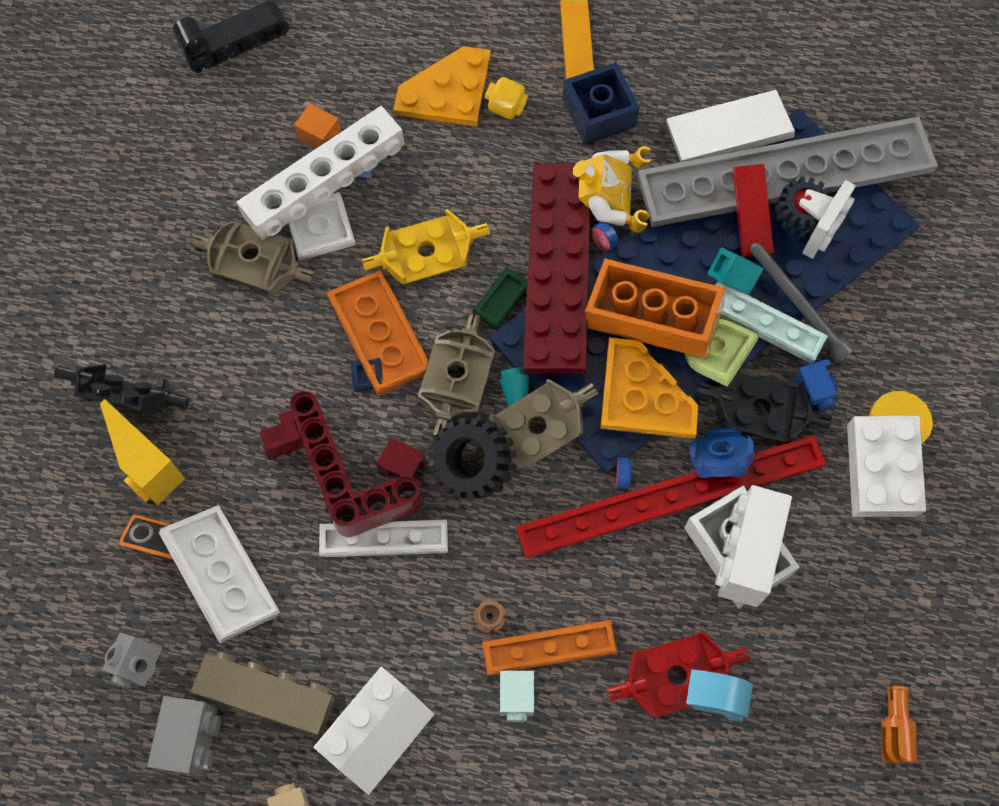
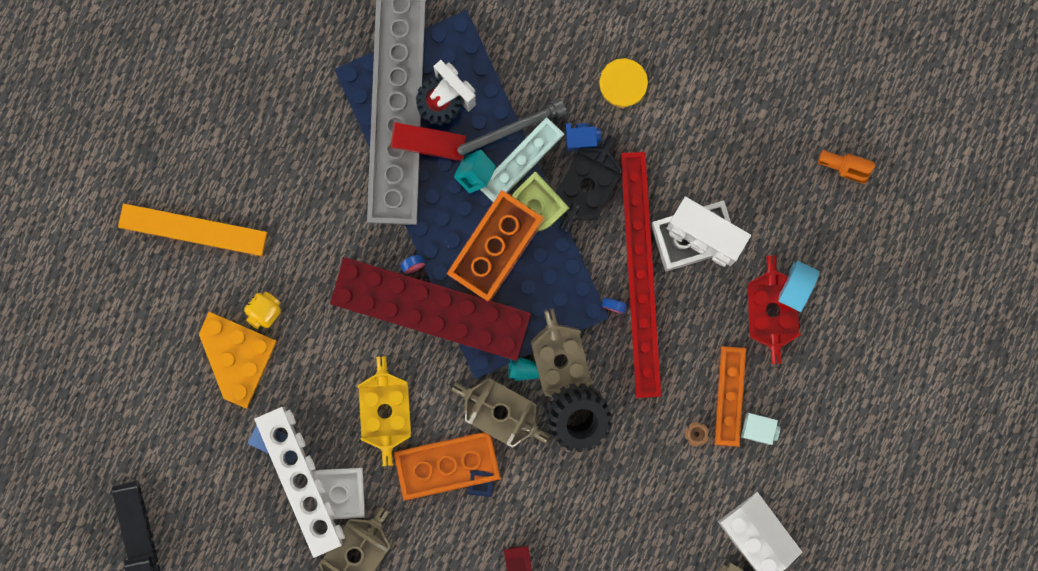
camera: 75 degrees left, 15 degrees up
(316, 126) = (250, 475): orange brick -> none
(335, 475) = (562, 524): dark red beam -> none
(387, 539) = (617, 499): white tile -> none
(400, 459) = (564, 472): dark red panel -> none
(501, 298) = (442, 360): dark green tile -> none
(600, 103) = (290, 233): dark blue brick -> none
(607, 186) = (371, 250): torso -> none
(643, 394) = (559, 273): light orange plate -> none
(709, 461) = (631, 227): blue plate -> none
(730, 127) = (340, 133): white tile -> none
(886, 466) = (660, 109): white brick -> none

